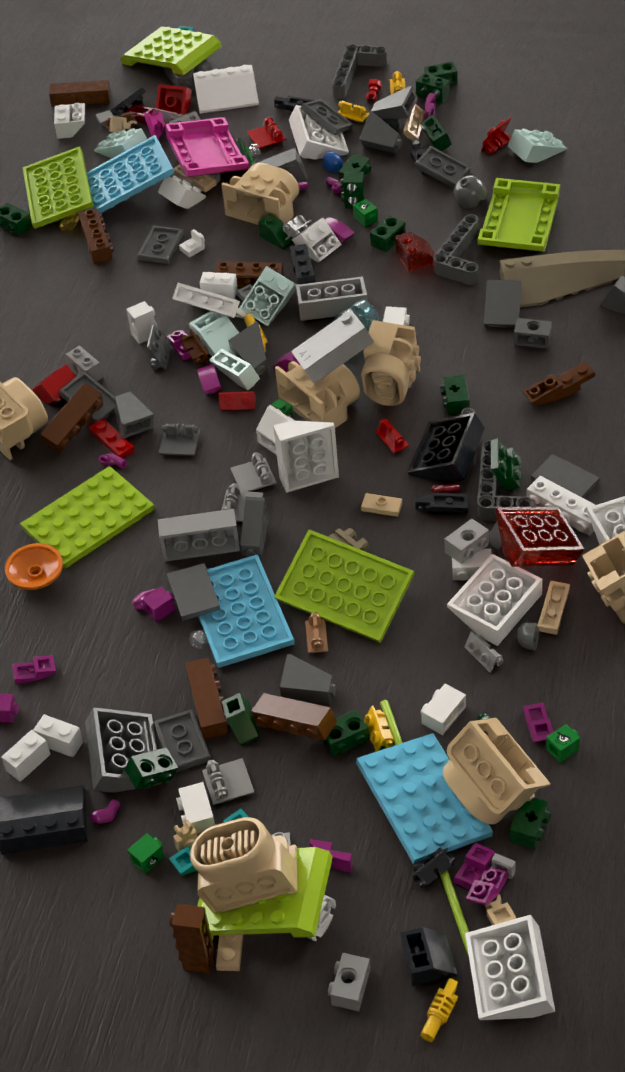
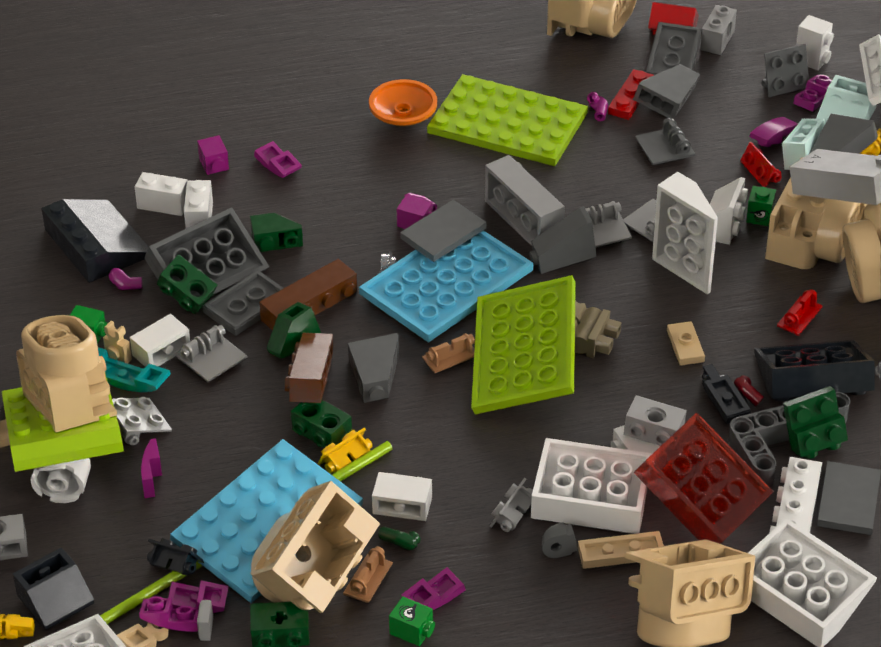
camera: 60 degrees right, 5 degrees down
(72, 418) = (628, 47): reddish brown brick -> none
(121, 694) = (275, 232): none -> dark green slope
(193, 342) = (809, 107): reddish brown hinge -> none

